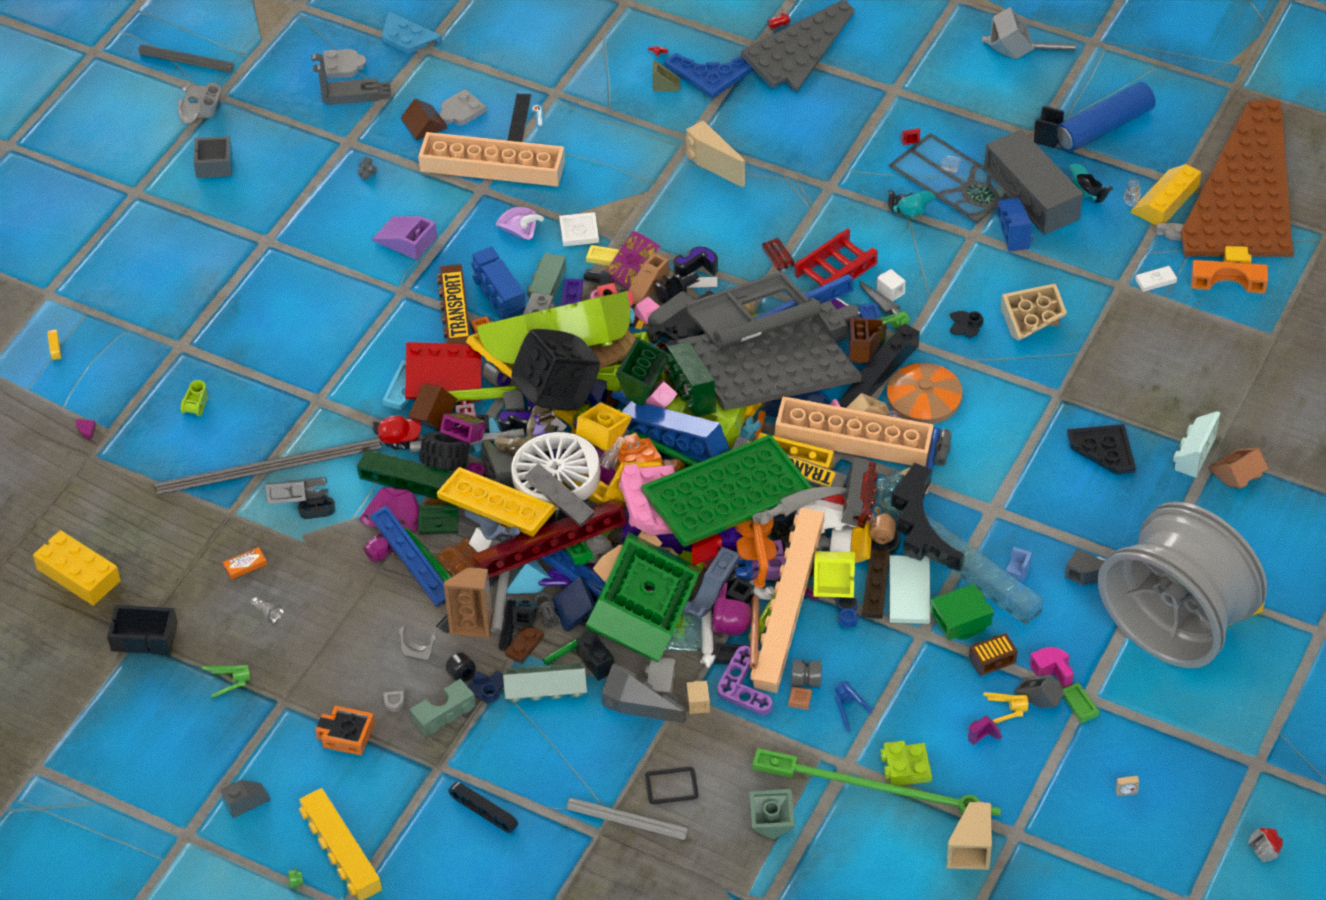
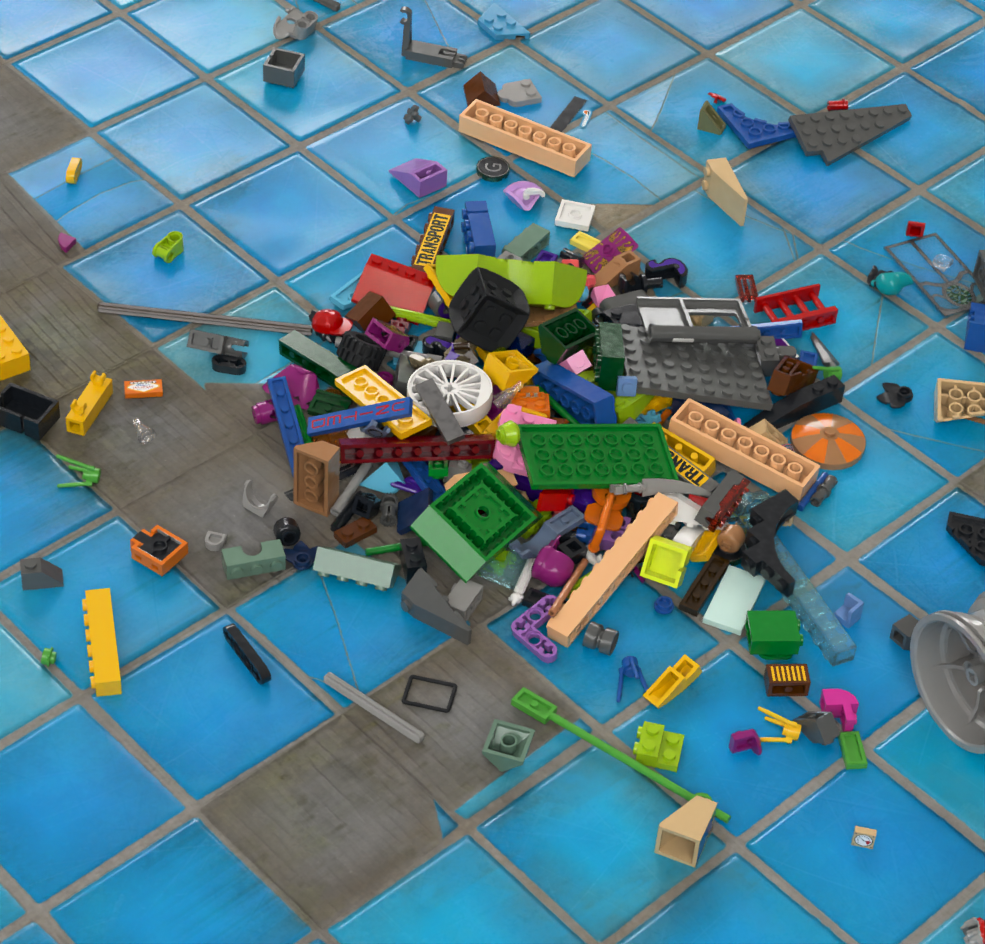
camera: 15 degrees right, 5 degrees down
(201, 599) = (89, 404): none -> yellow brick
(343, 63) = (433, 30): light grey plate -> none
(474, 203) = (493, 169): none -> tile
(481, 525) = (359, 416): none -> blue tile
(641, 499) = (508, 433): none -> lime cone
(698, 697) = (490, 626): tan brick -> none
(705, 282) = (673, 292): white sticker -> none
(722, 406) = (626, 386): none -> medium blue plate
(800, 698) = (586, 659): nougat tile -> none
(844, 603) = (671, 592): black tile -> none
(891, 285) = (838, 342): white brick -> none
(891, 693) = (673, 682): none -> yellow slope

